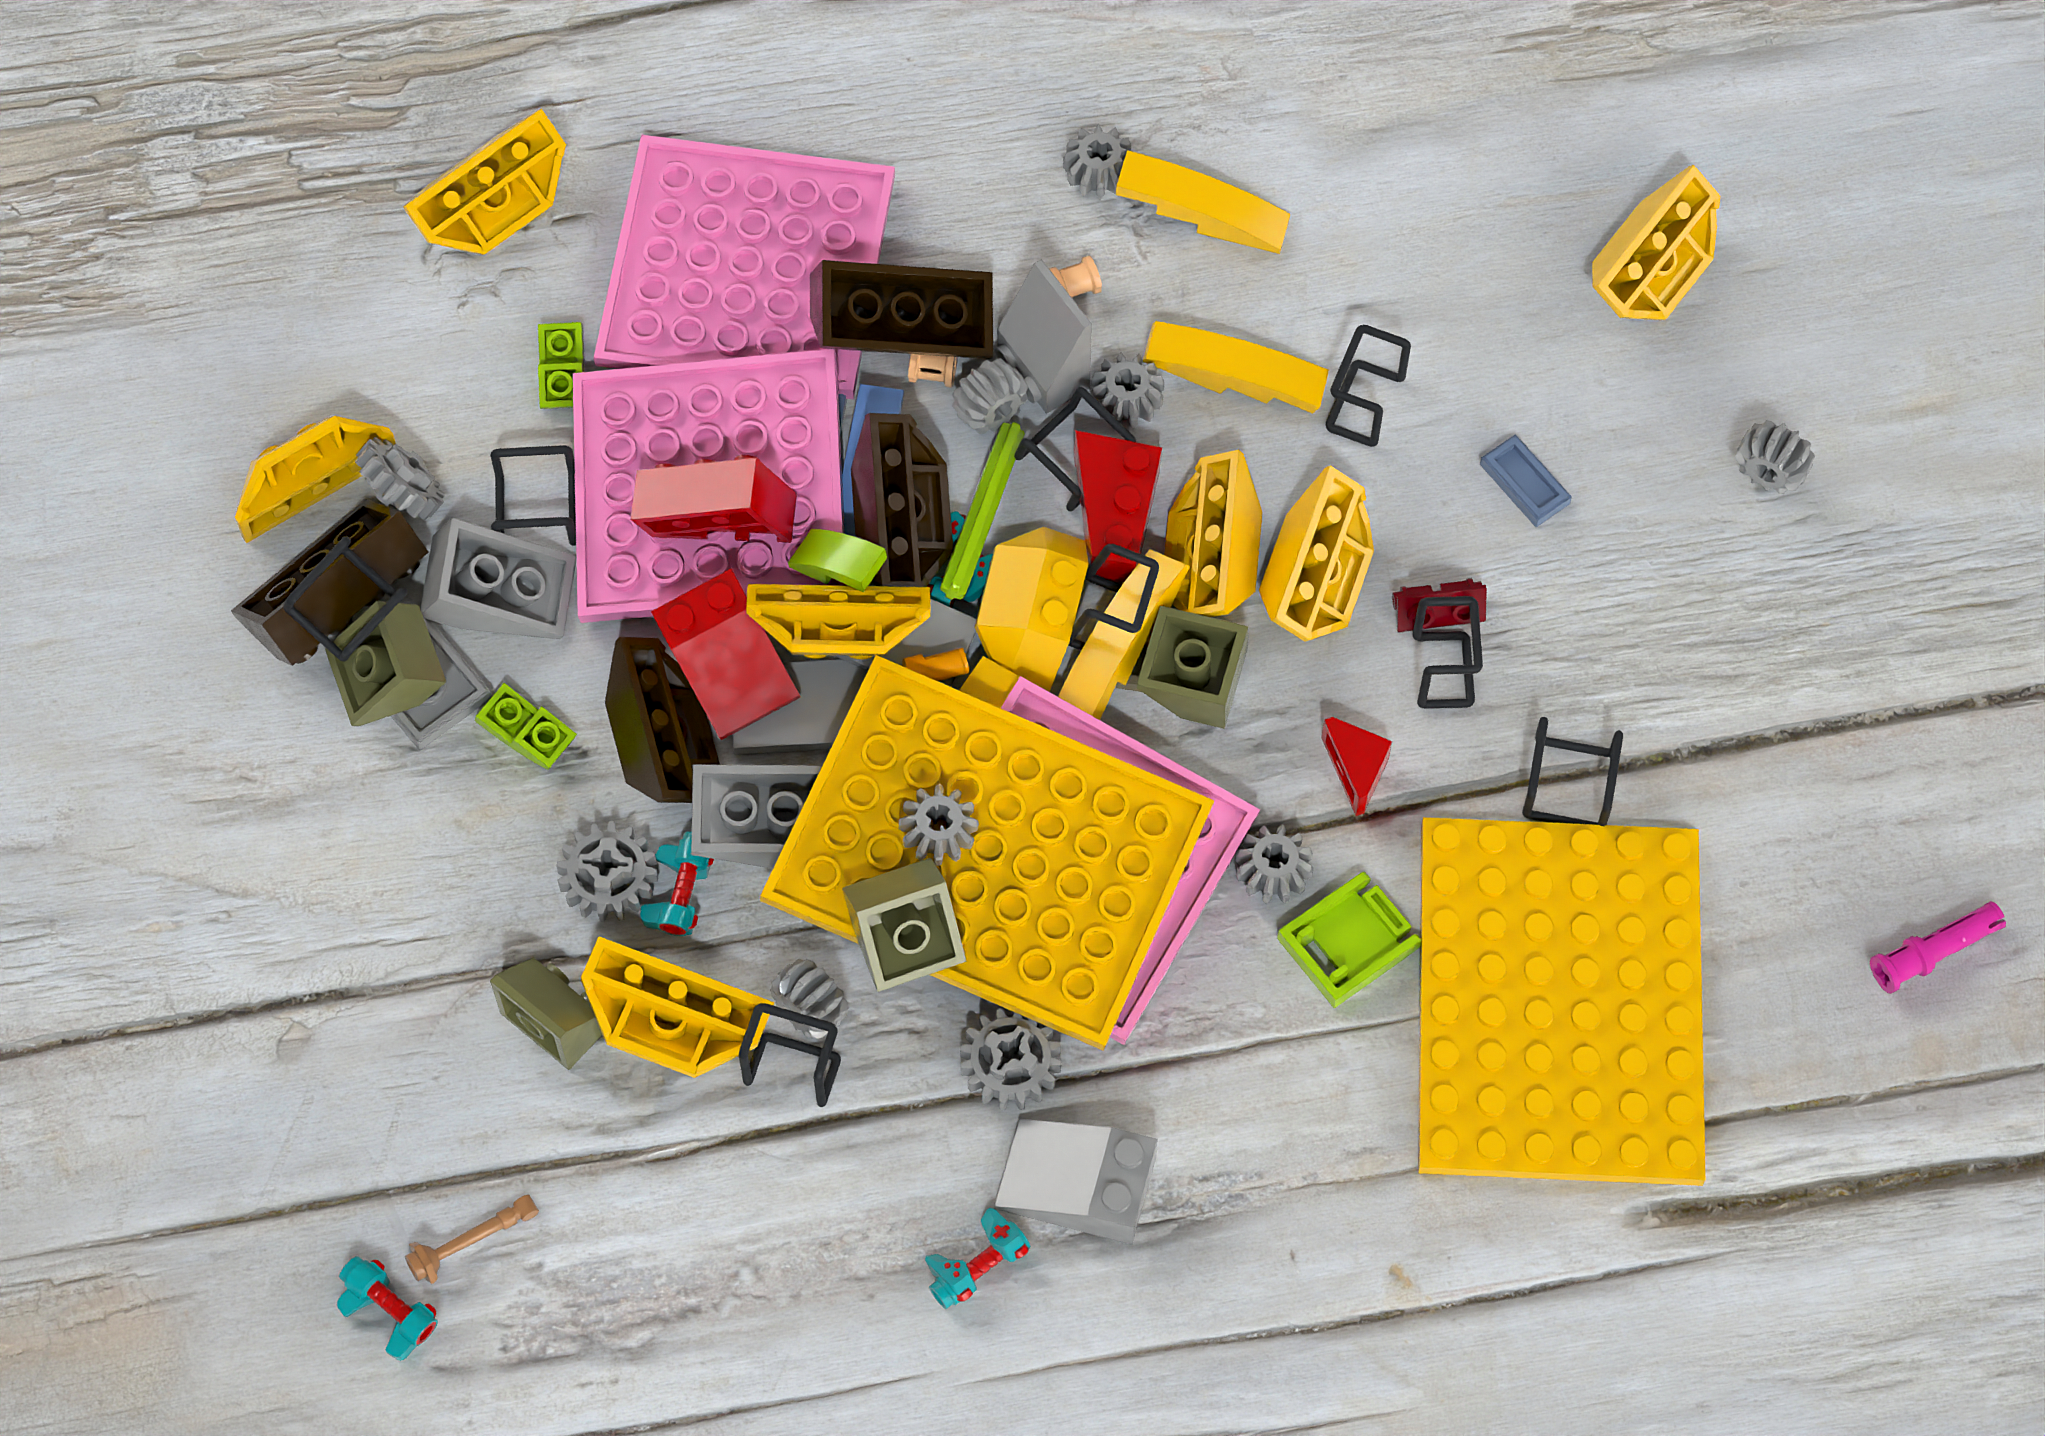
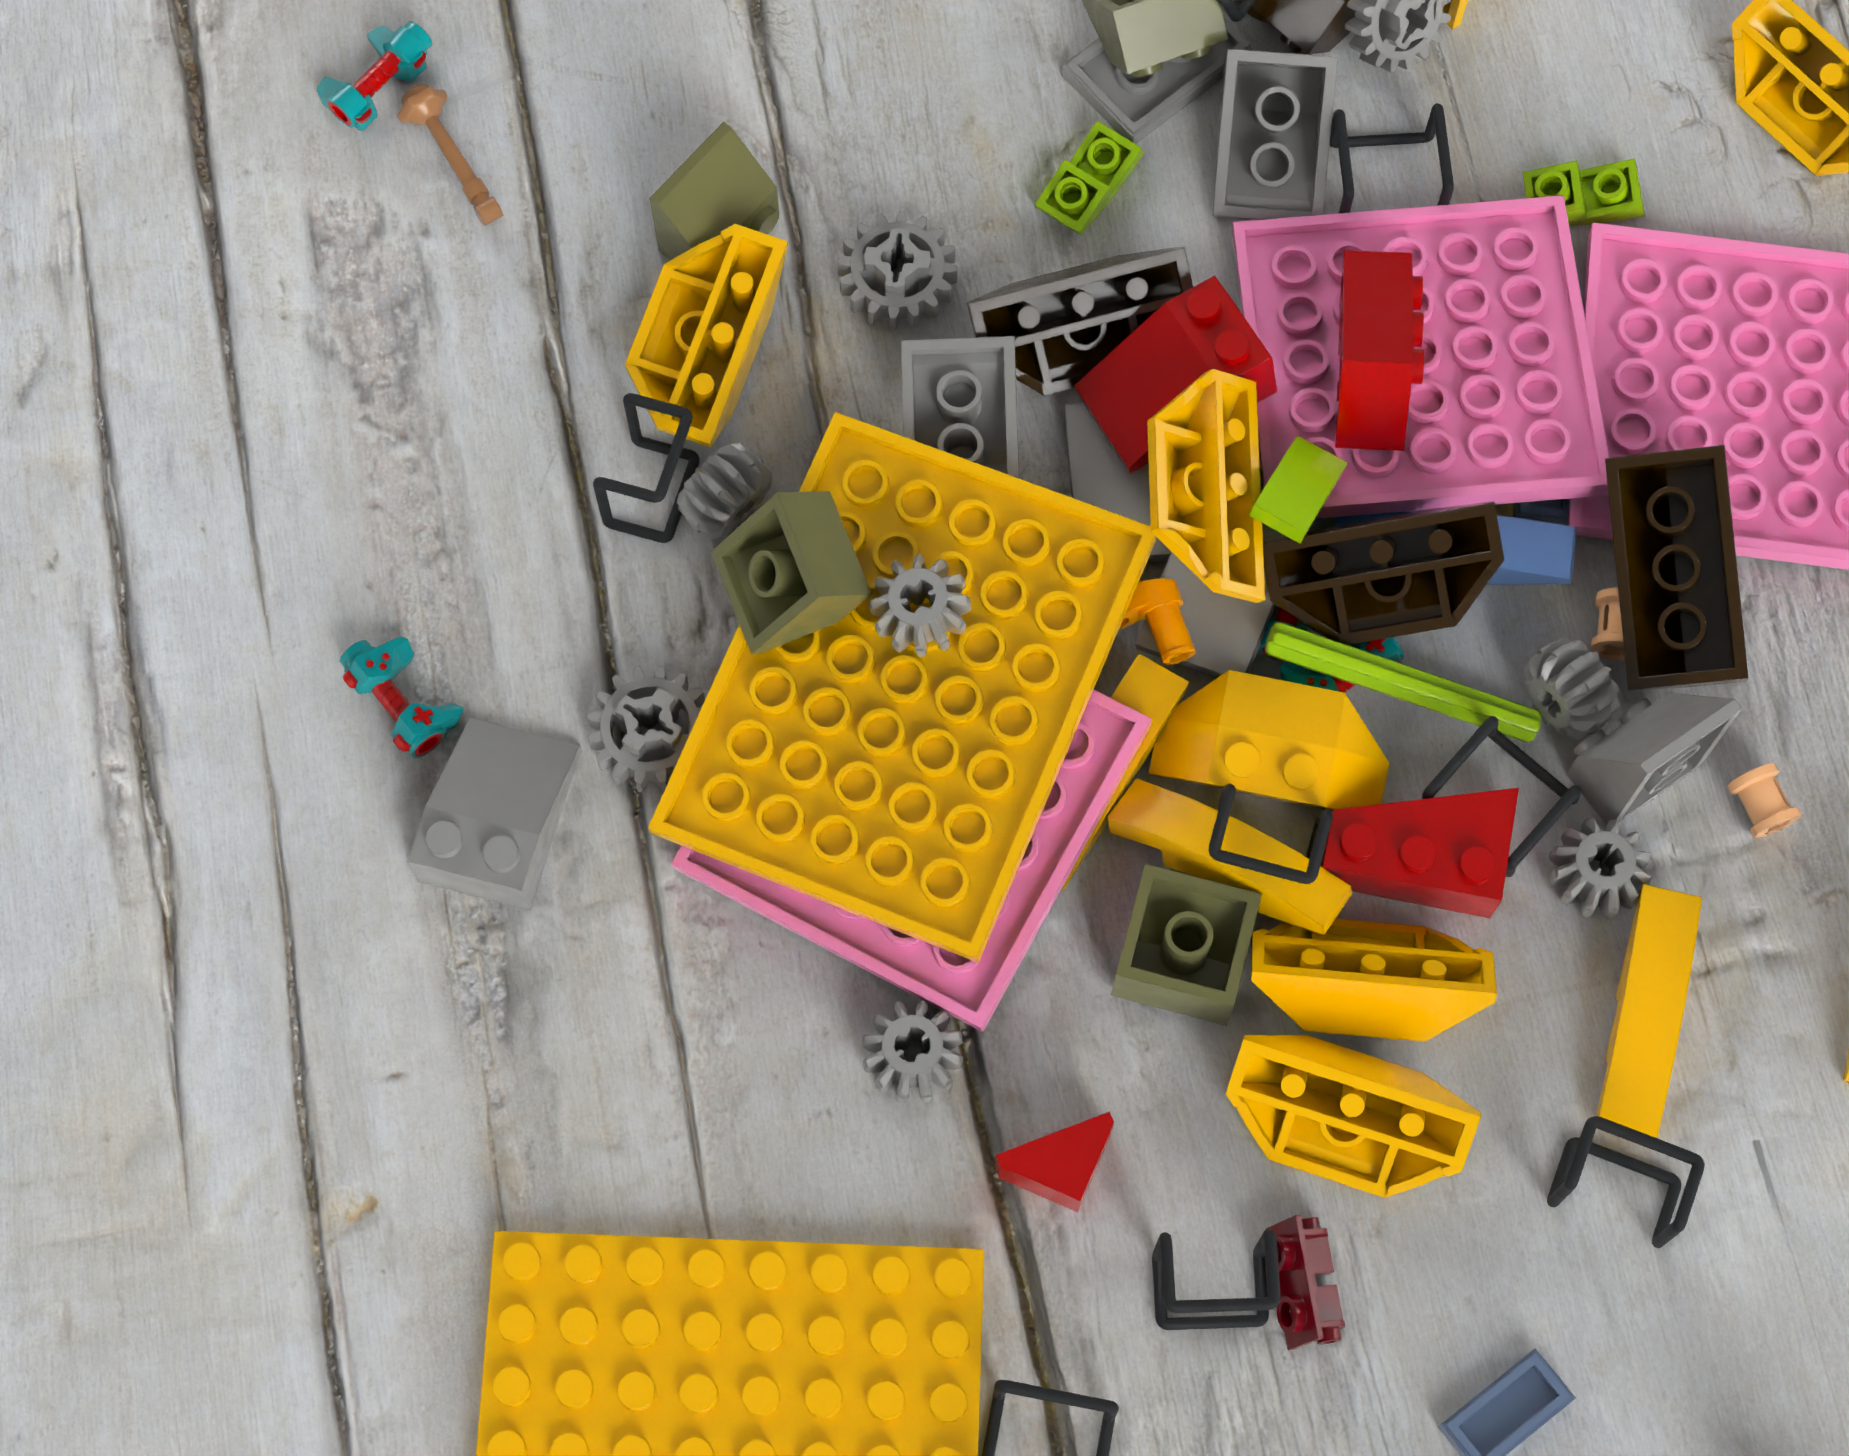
camera: 90 degrees right, 5 degrees up
(677, 915) = (844, 351): teal piece -> none
(1353, 934) = (820, 1161): lime container -> none

